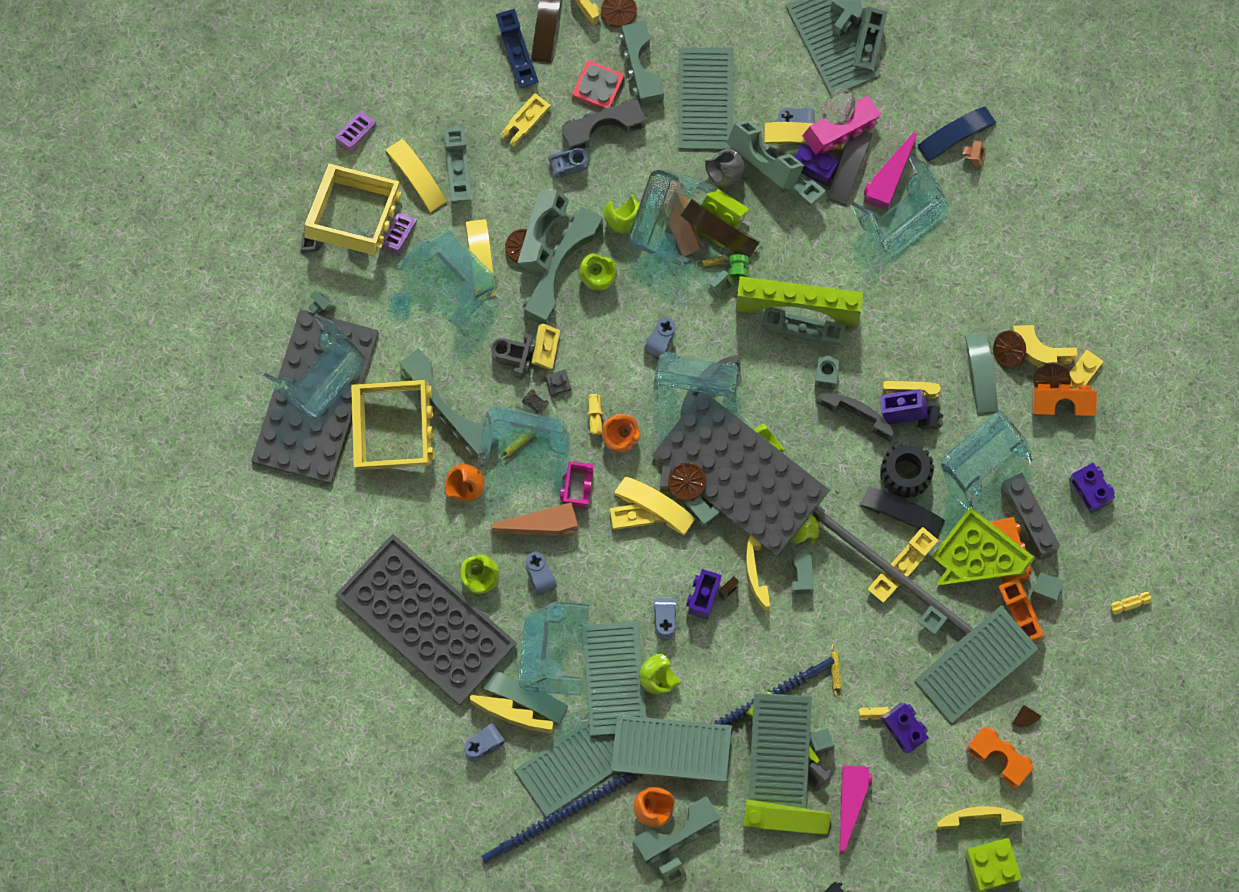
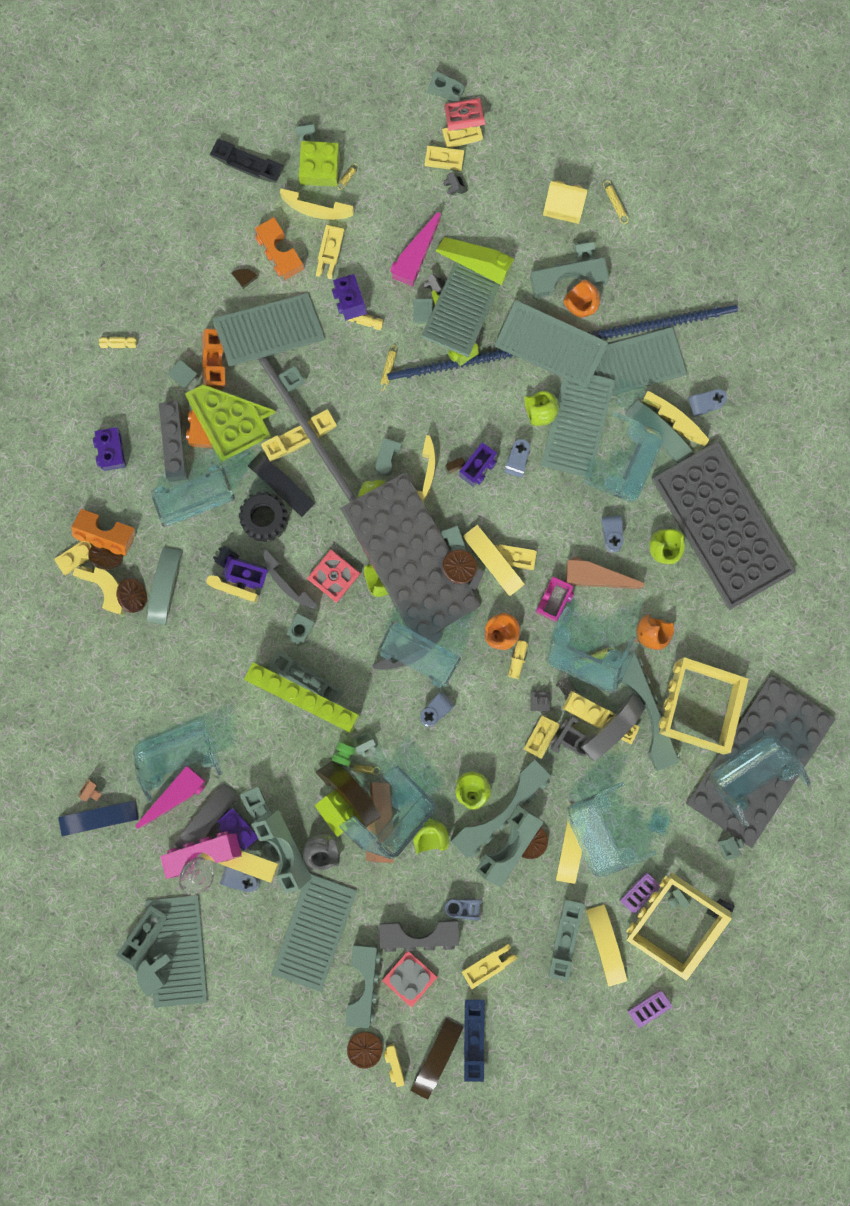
camera: 160 degrees left, 10 degrees up
(473, 375) = (615, 728): none -> dark grey slope
(492, 384) = (594, 714): none -> light yellow slope
(812, 436) = (334, 576): none -> coral piece
(945, 777) = (330, 249): none -> light yellow hinge
(957, 866) = (348, 175): none -> light yellow piece
(1072, 844) = (247, 163): none -> black slope

